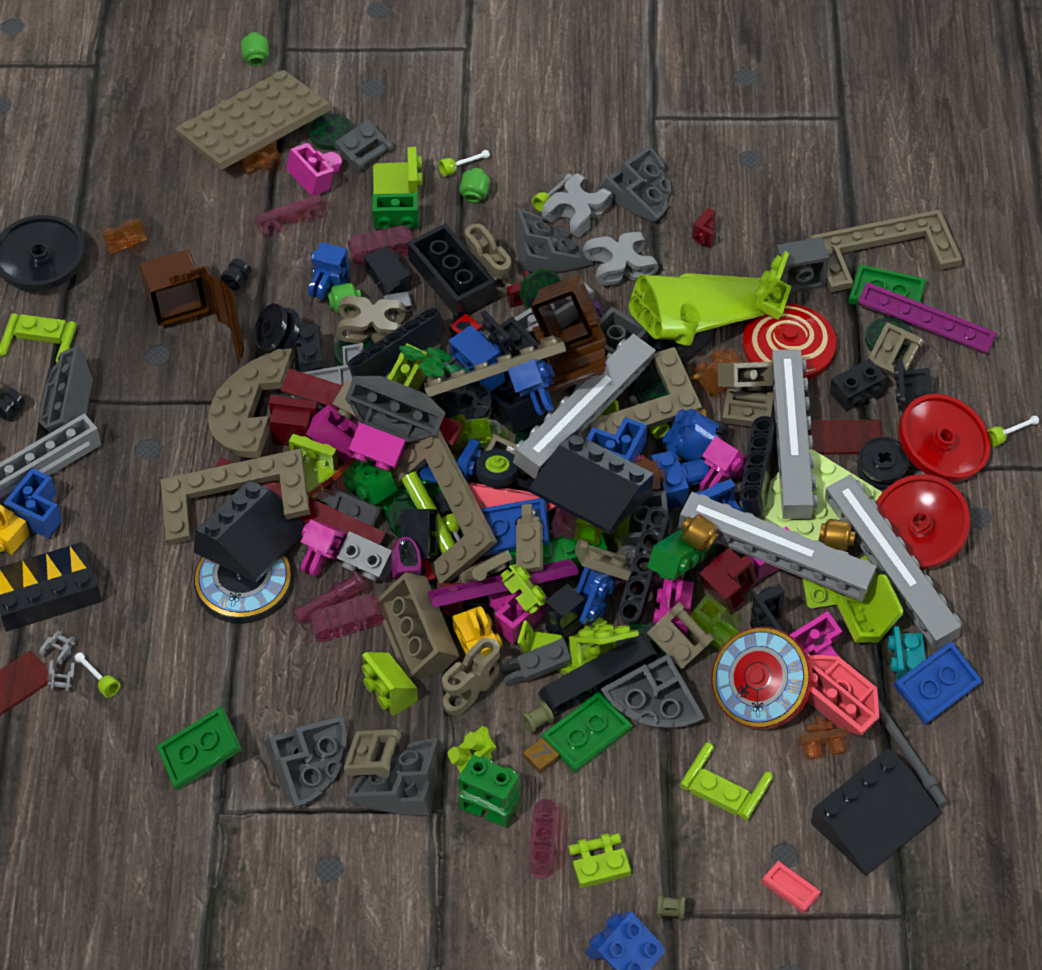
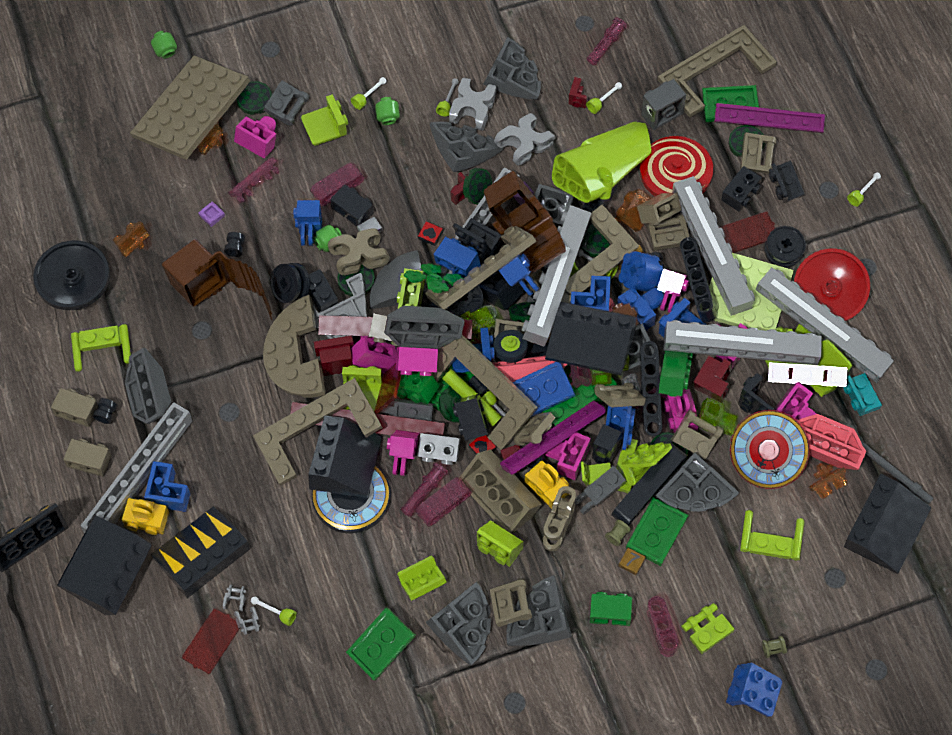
camera: 20 degrees left, 10 degrees up
(226, 237) = (211, 214): none -> medium lavender tile
(280, 691) = (421, 578): none -> lime bracket
(384, 353) = (389, 268): black beam -> none
(395, 210) = (337, 152): green brick -> none
(405, 558) = (472, 441): rock -> none
(451, 270) = (401, 189): black brick -> none
(476, 741) = (587, 570): lime hips -> none
(489, 782) = (610, 599): green brick -> none
(490, 256) = (427, 172): dark tan piece -> none
(529, 540) = (562, 400): dark tan hinge -> none
(530, 595) = (580, 442): lime hinge -> none
(699, 532) = (686, 352): pearl gold head -> none
(722, 246) = (595, 104): none -> lime hinge
(773, 292) = (652, 130): lime bracket -> none
(774, 178) = (610, 35): none -> clear pink pin
(791, 887) = (850, 601): coral tile -> none
(837, 534) = (778, 318): pearl gold head -> none
(845, 608) = (807, 374): none -> hinge
(937, 682) = (891, 408): blue tile -> none
(944, 437) = (821, 212): red dish -> none

